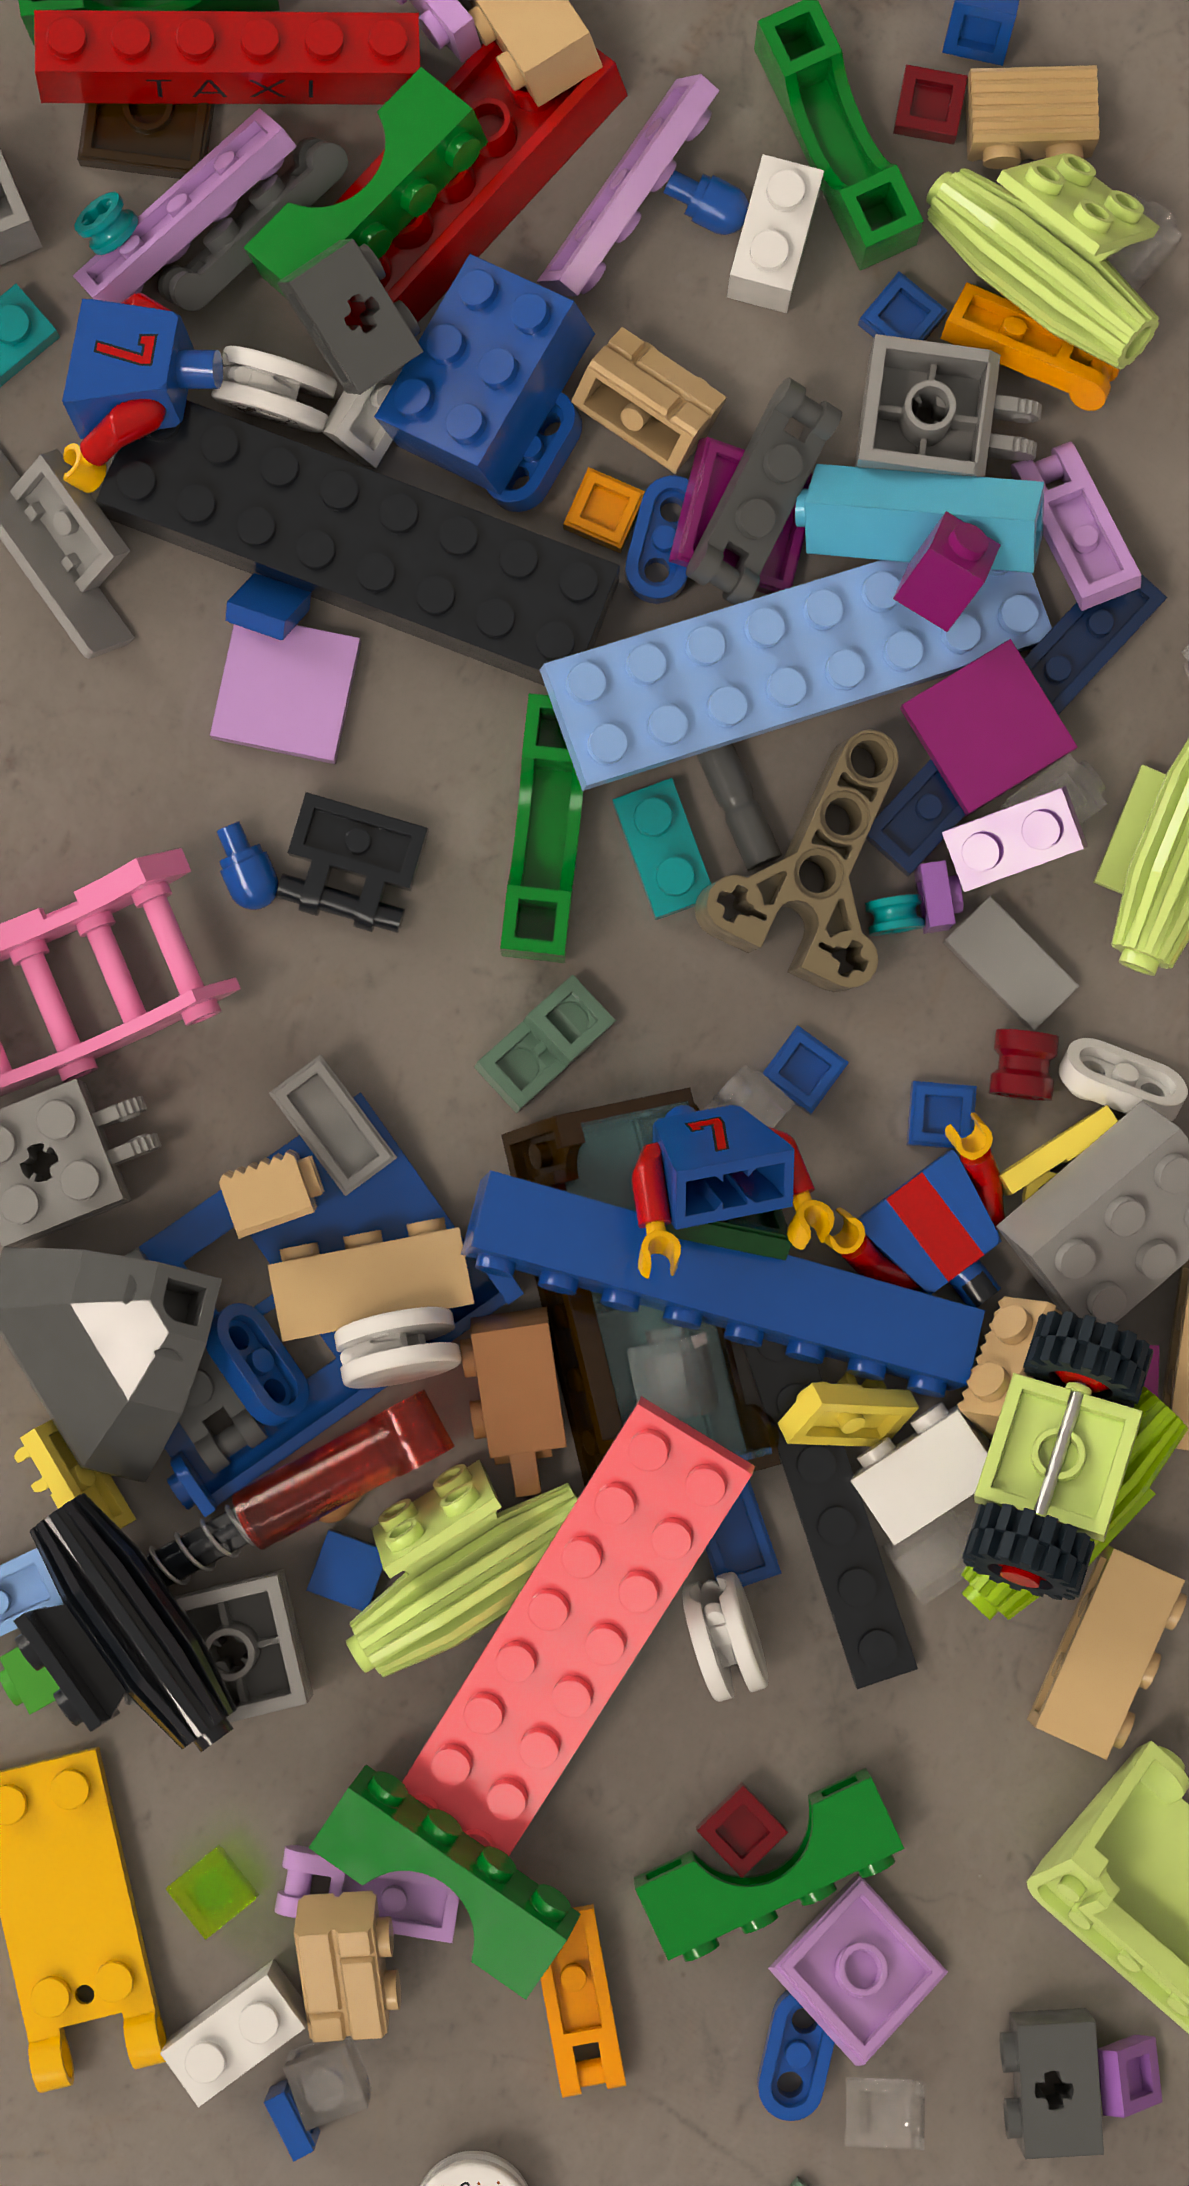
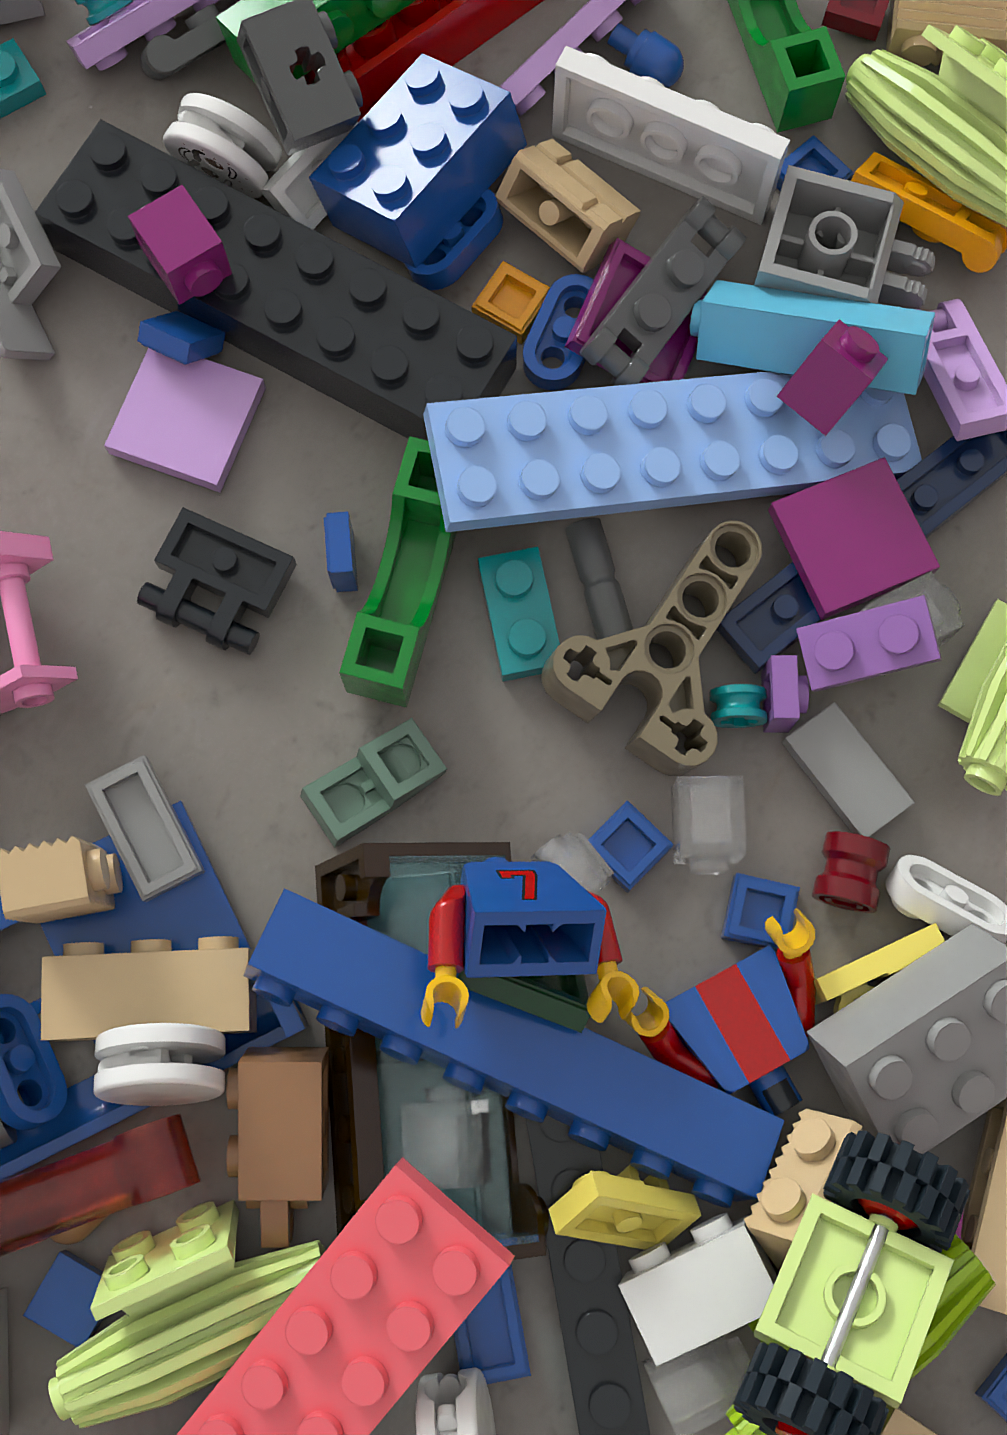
camera: 10 degrees right, 10 degrees down
(128, 380) = (80, 100): blue torso -> none
(246, 869) = (113, 573): blue cylinder -> none
(266, 530) = (181, 245): none -> magenta brick
(473, 814) = (340, 551): none -> blue tile
(742, 311) = (666, 135): none -> white plate
(774, 233) = (714, 59): white brick -> none
(879, 1037) = (708, 822): none -> clear brick

